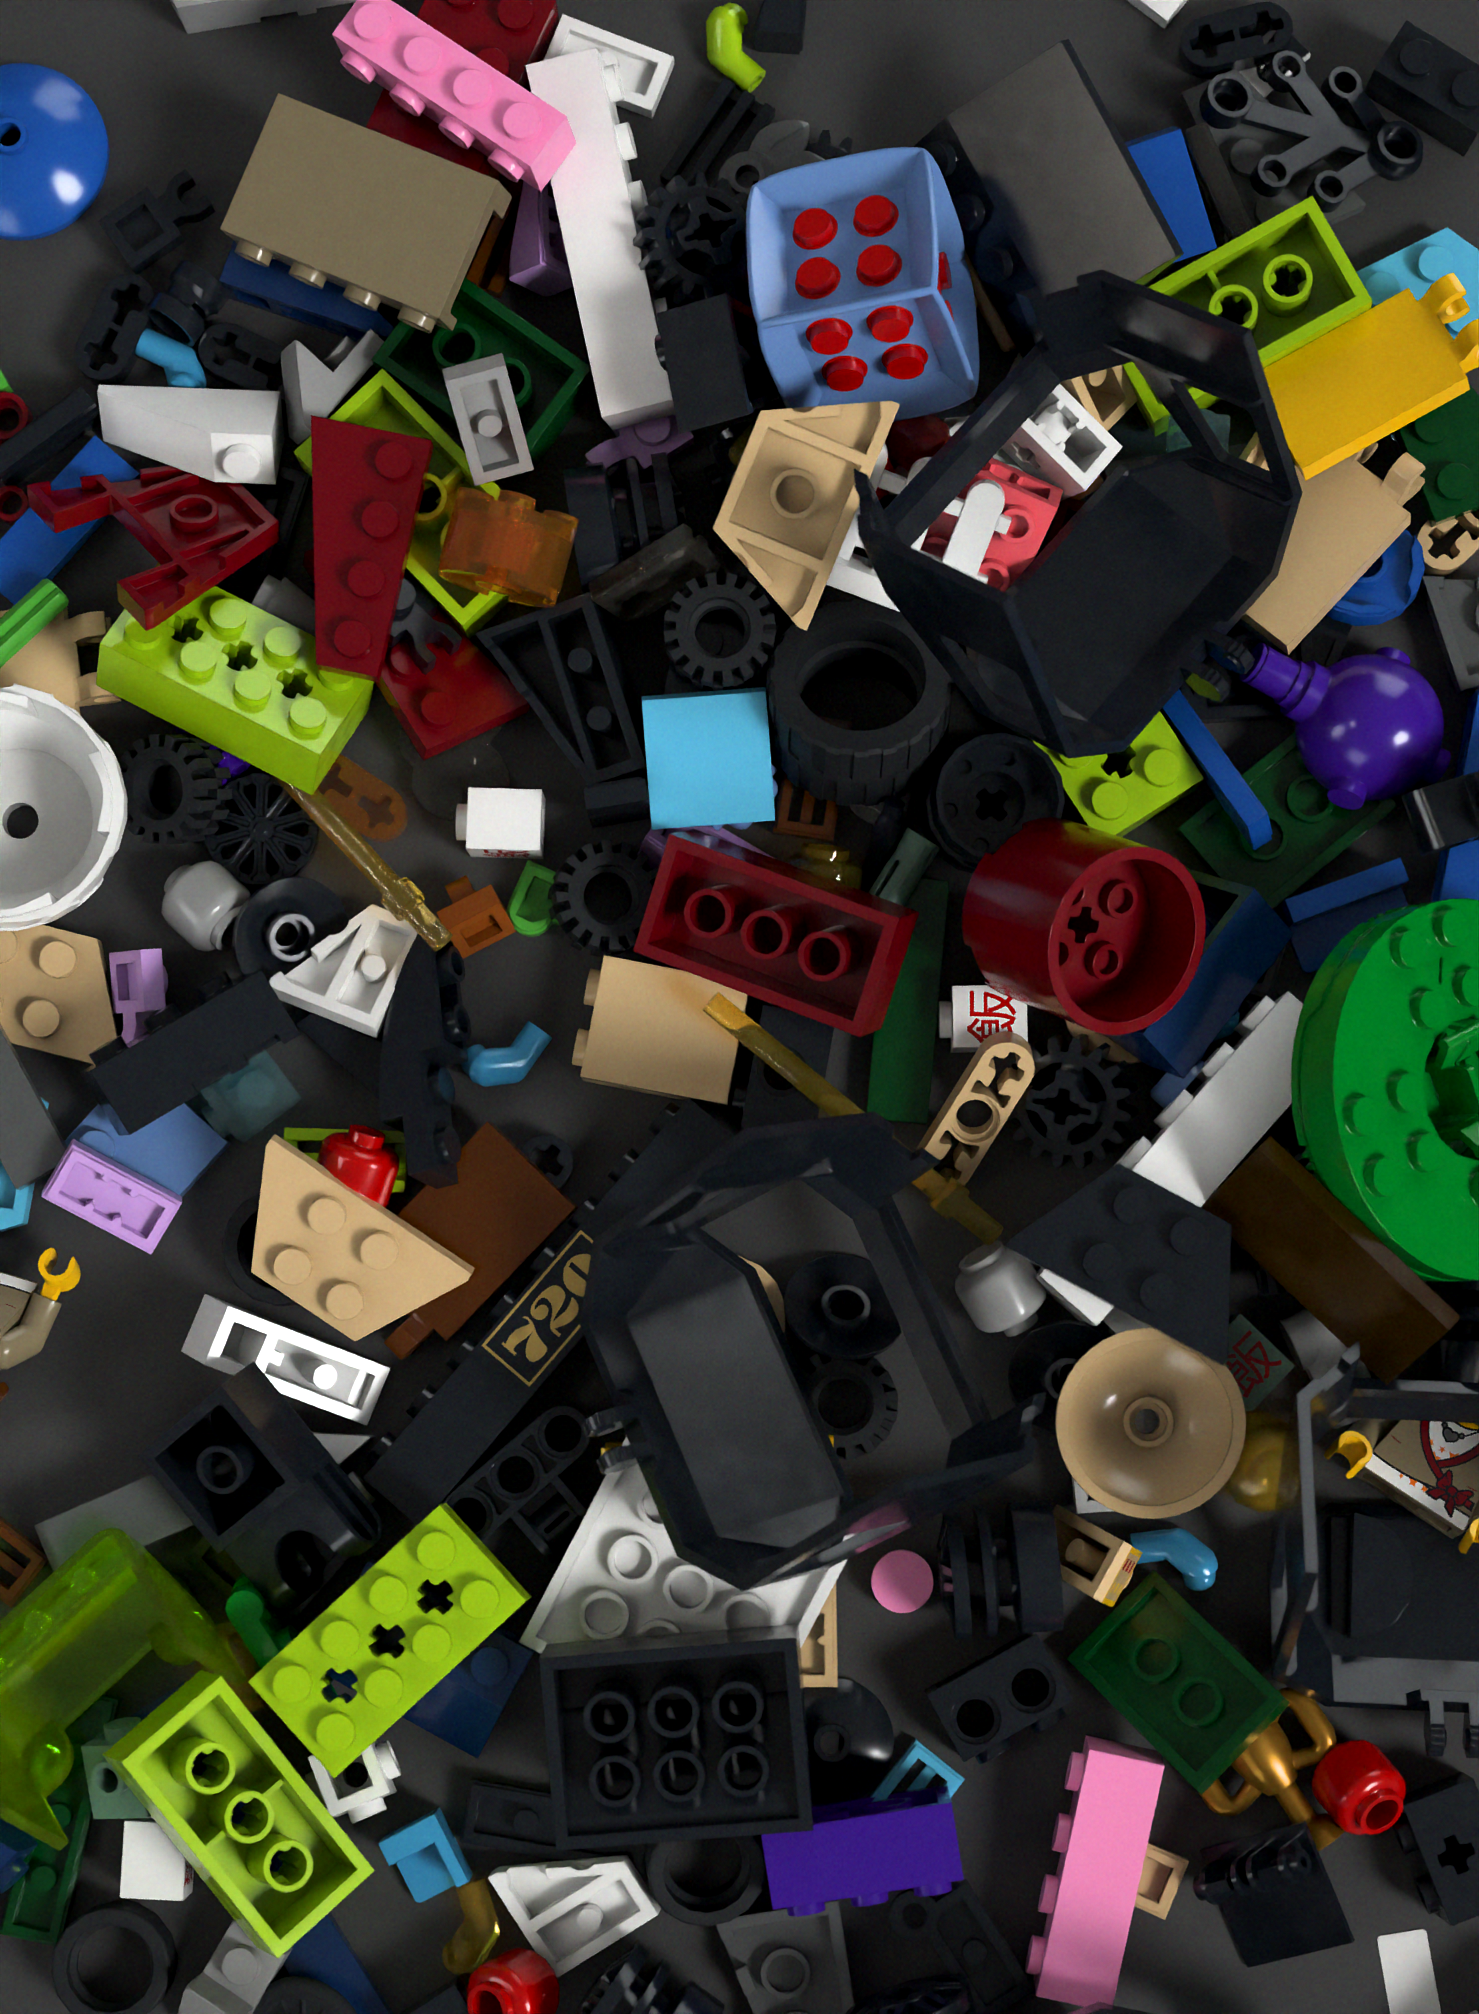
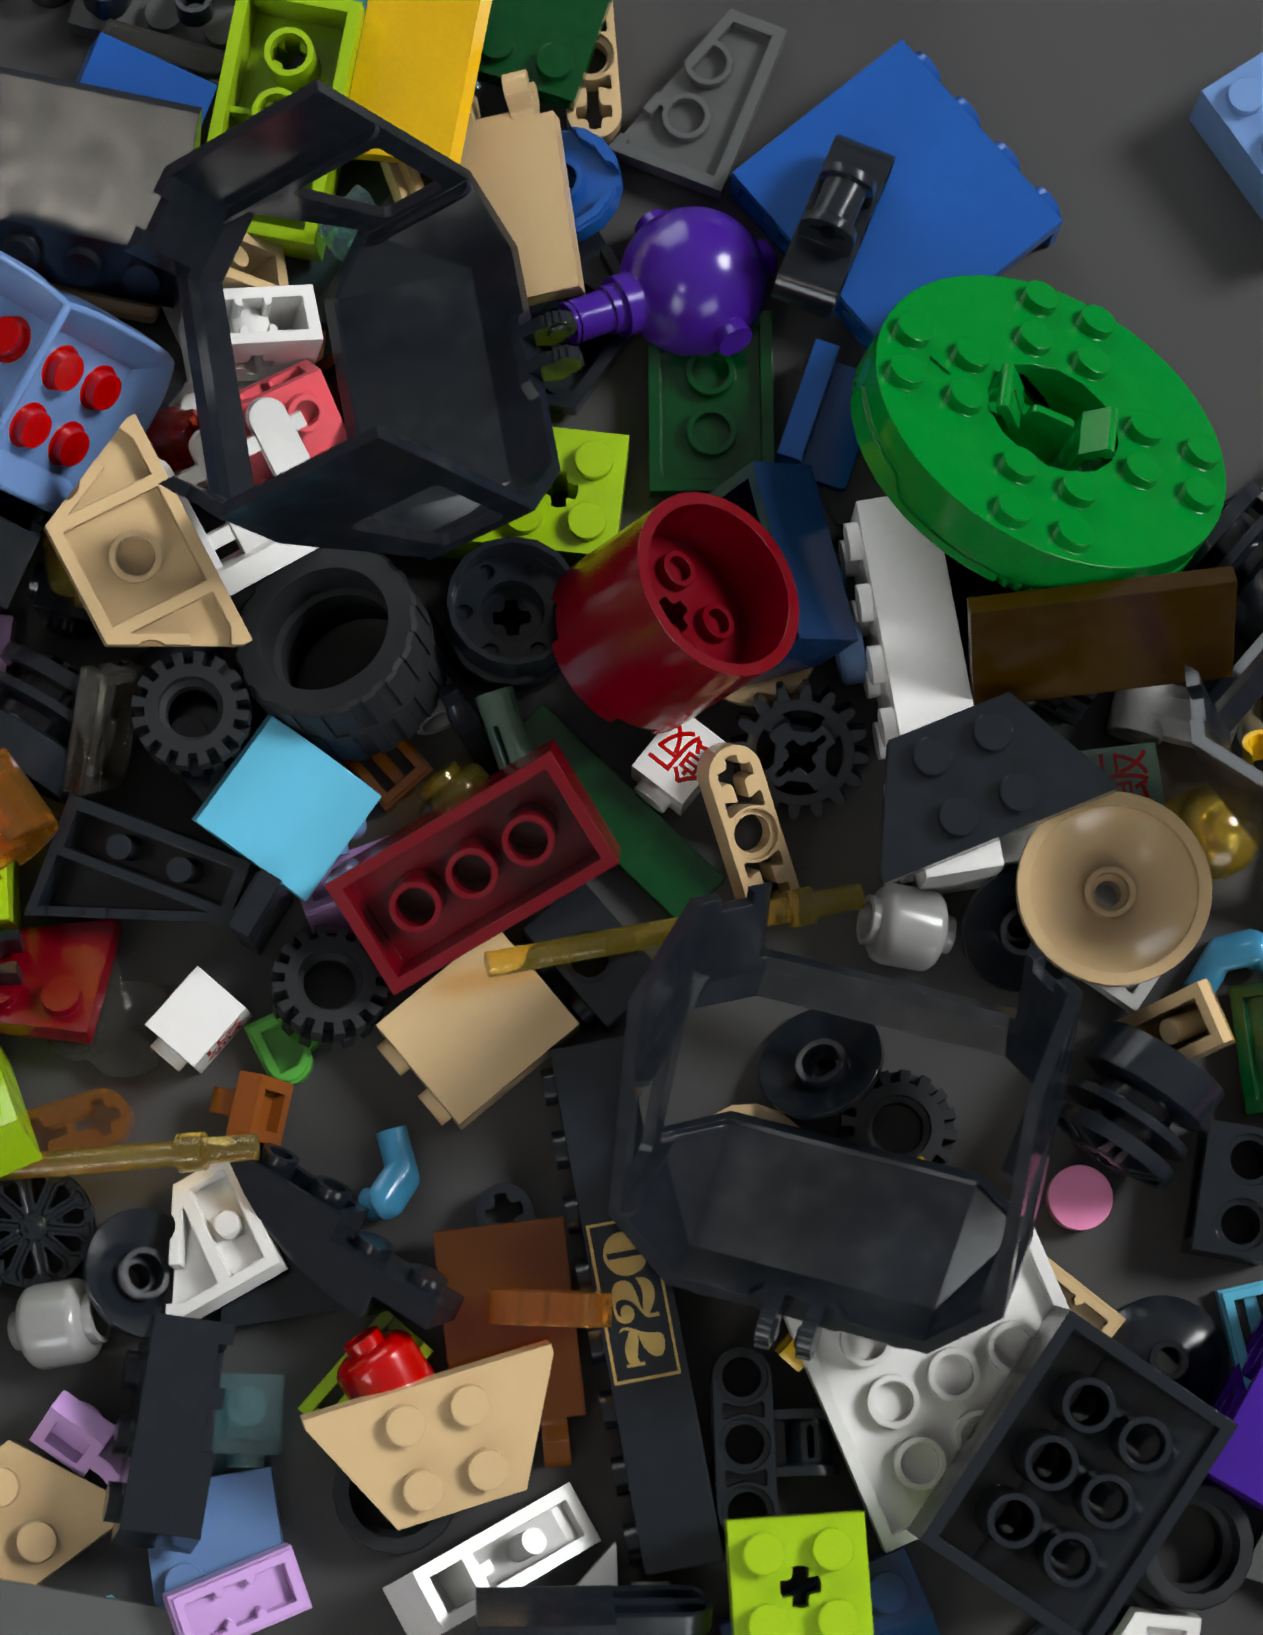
camera: 60 degrees left, 5 degrees down
(498, 1251) = (549, 1307): none -> clear orange beam
(1218, 772) = (640, 420): blue tile -> none

